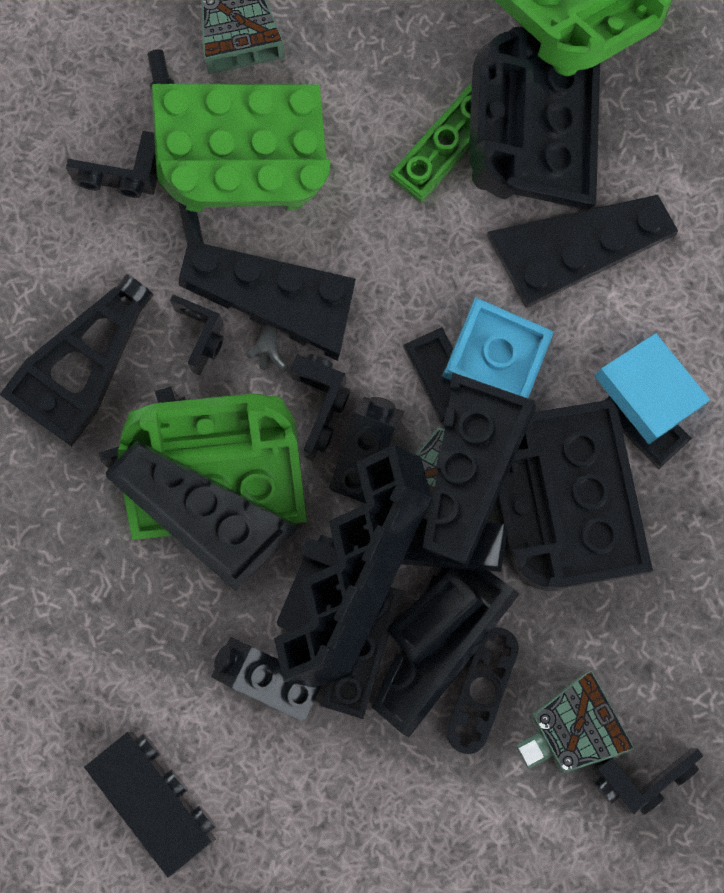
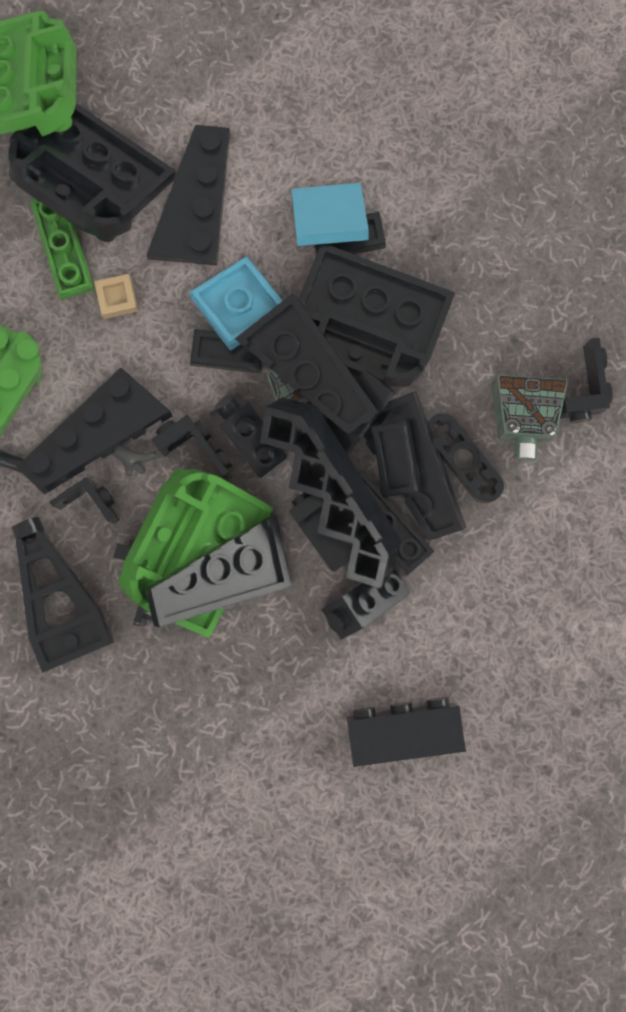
camera: 65 degrees left, 5 degrees up
(426, 228) = (116, 296): none -> tan plate

